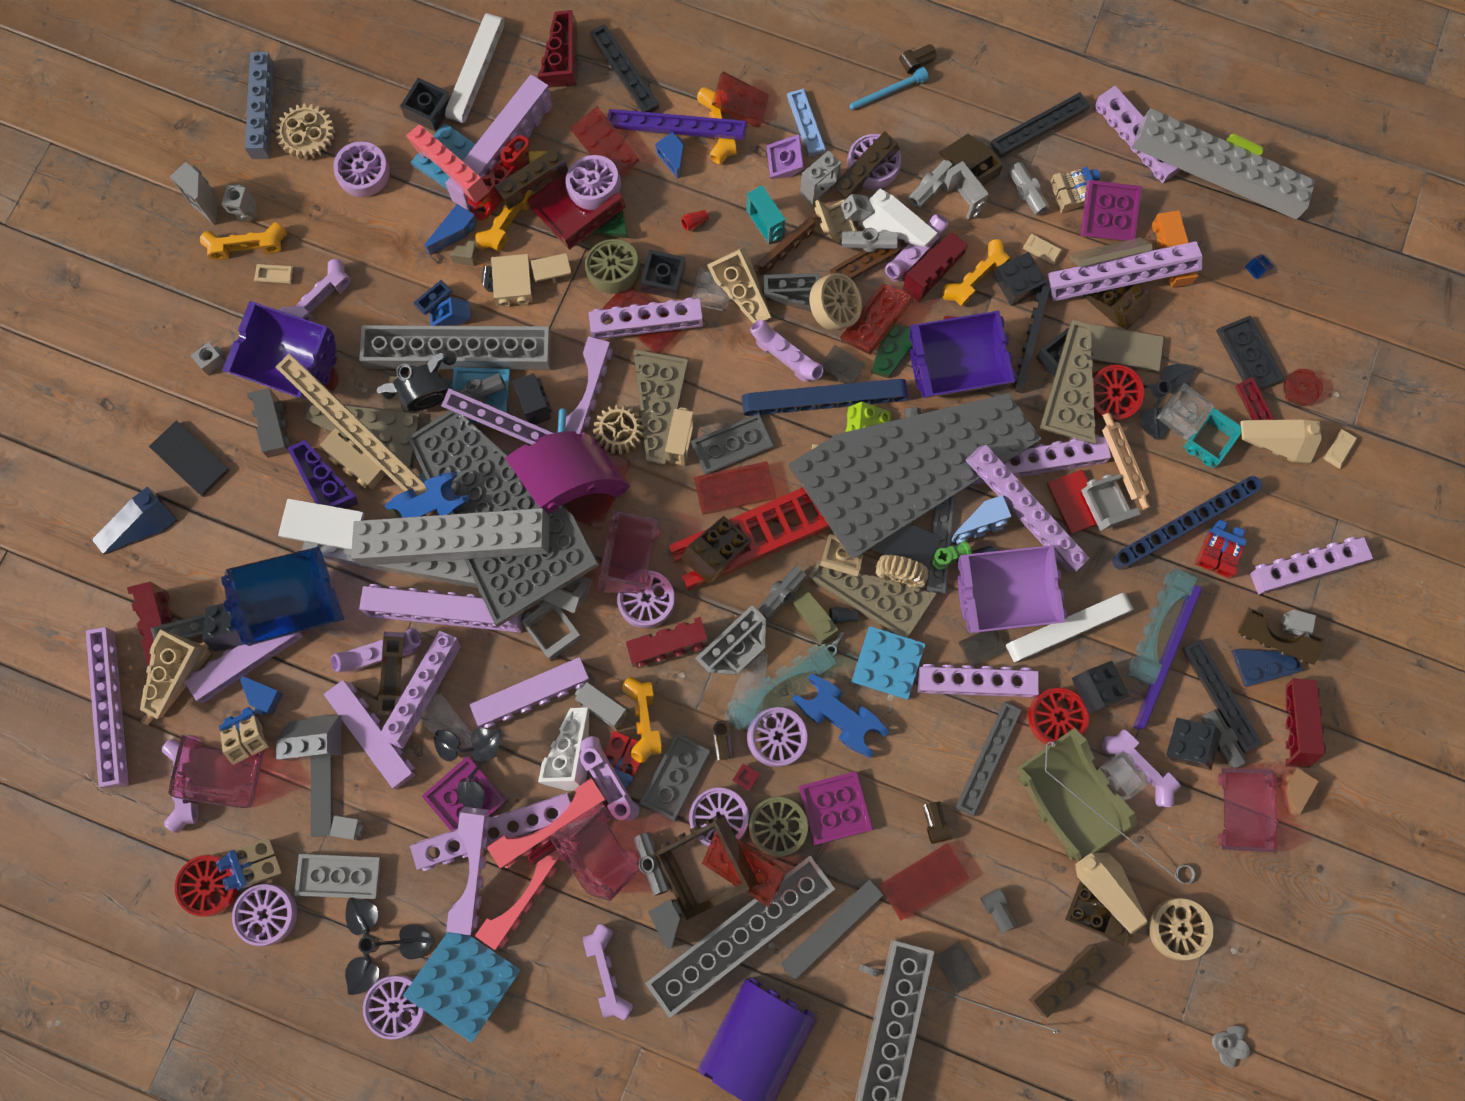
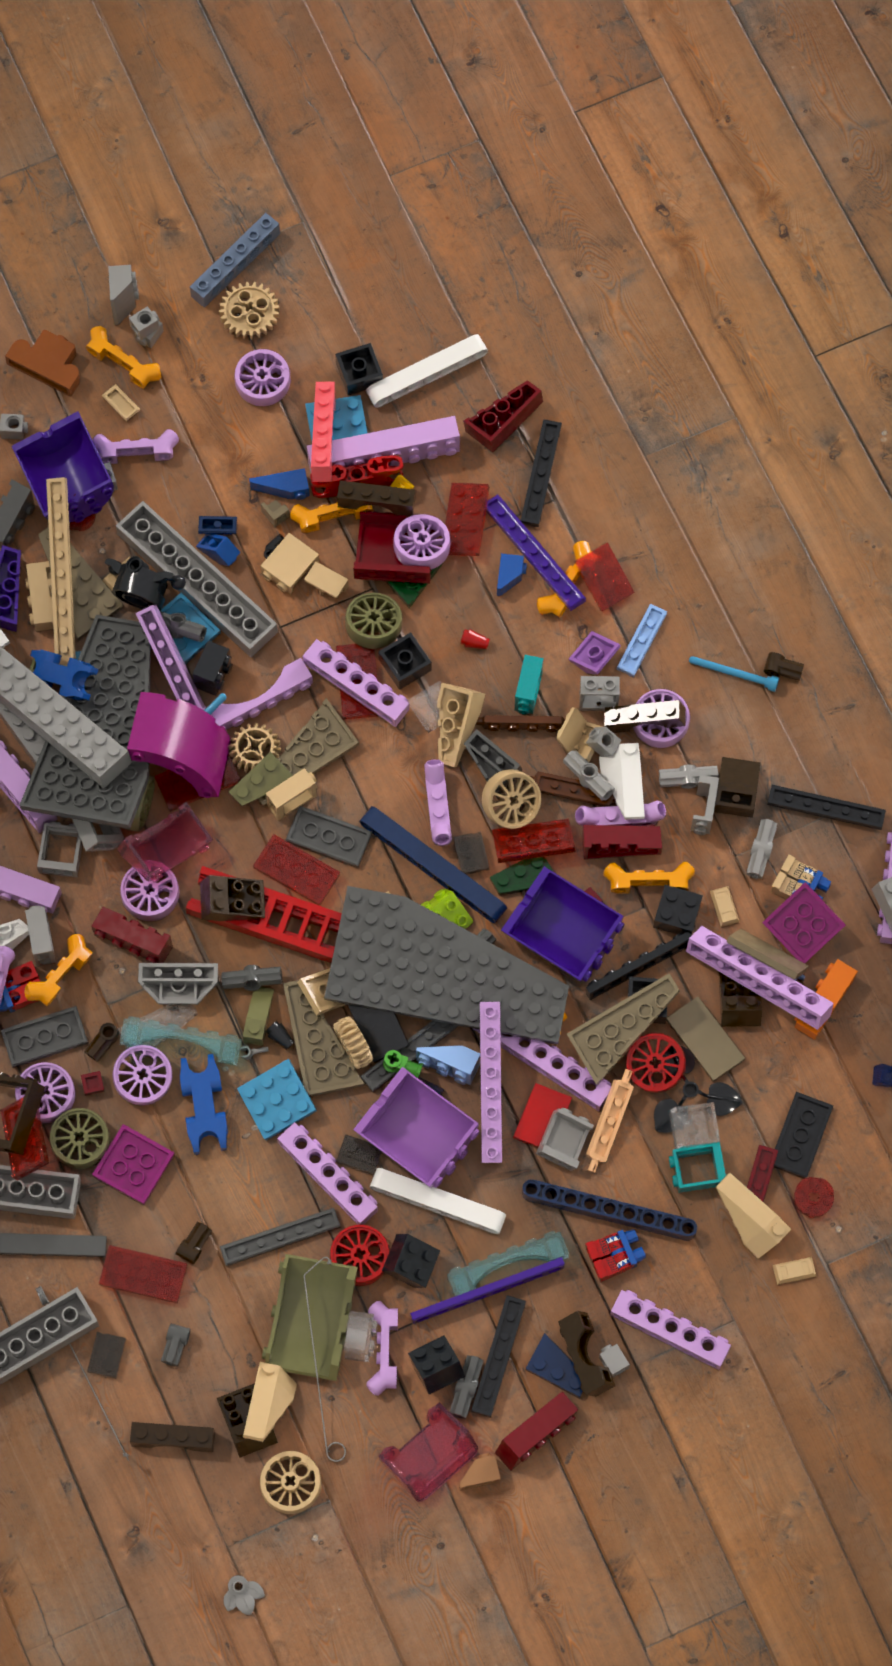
camera: 45 degrees right, 5 degrees down
(188, 291) = (47, 361): none -> dark orange brick
(648, 446) = (260, 780): none -> olive wing

